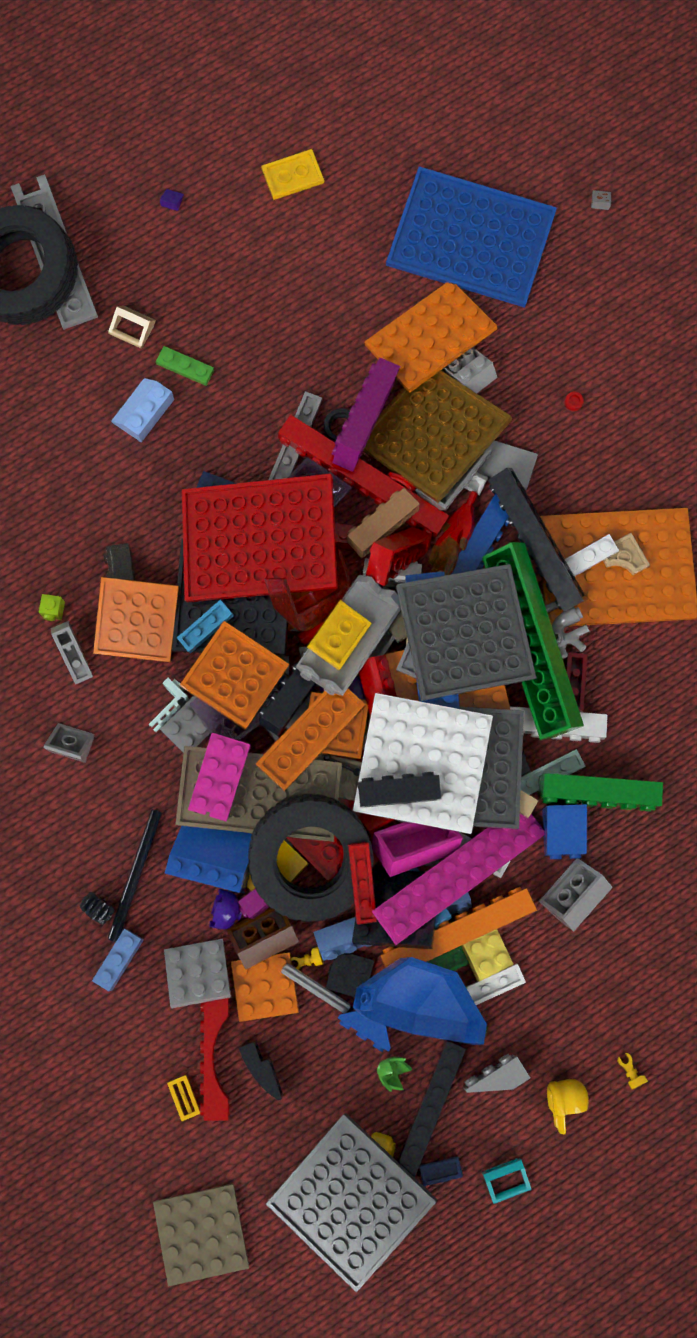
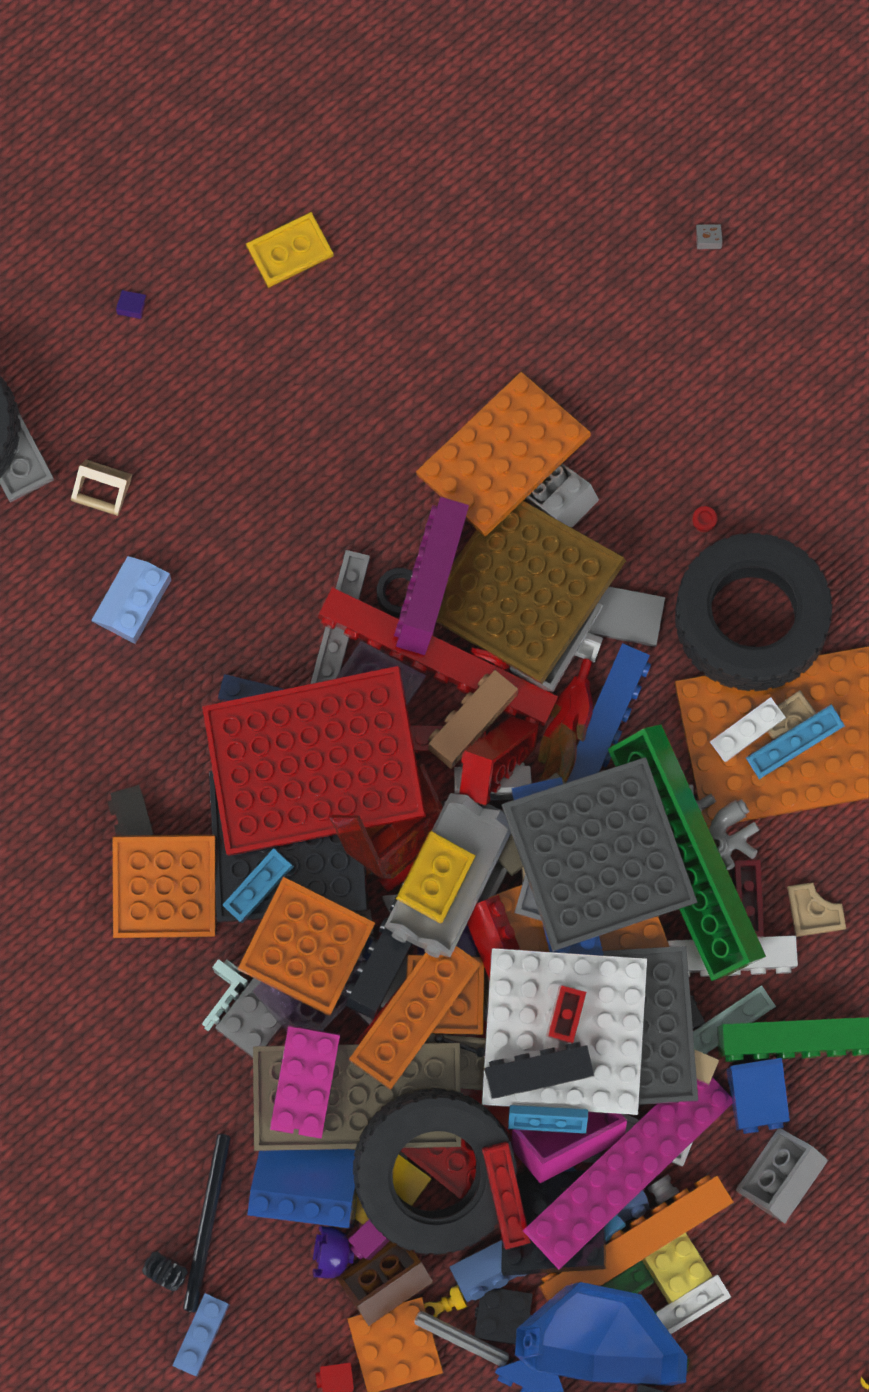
camera: 10 degrees left, 0 degrees up
(51, 607) = (49, 883): lime brick -> none
(70, 742) = (98, 1059): light grey slope -> none
(71, 652) = (83, 939): light grey slope -> none
(185, 365) = (179, 532): bright green plate -> none
(197, 973) = (306, 1339): light grey plate -> none
(402, 828) = (548, 1119): none -> dark azure plate
(425, 749) = (566, 1014): none -> red brick
(471, 236) = (541, 309): blue plate -> none
(483, 894) = (663, 1190): none -> light grey wheel
(537, 539) = (677, 716): black brick -> none
(610, 432) = (761, 558): none -> black tyre
(621, 700) = (812, 913): none -> tan tile
(623, 569) = (795, 741): none -> dark azure tile

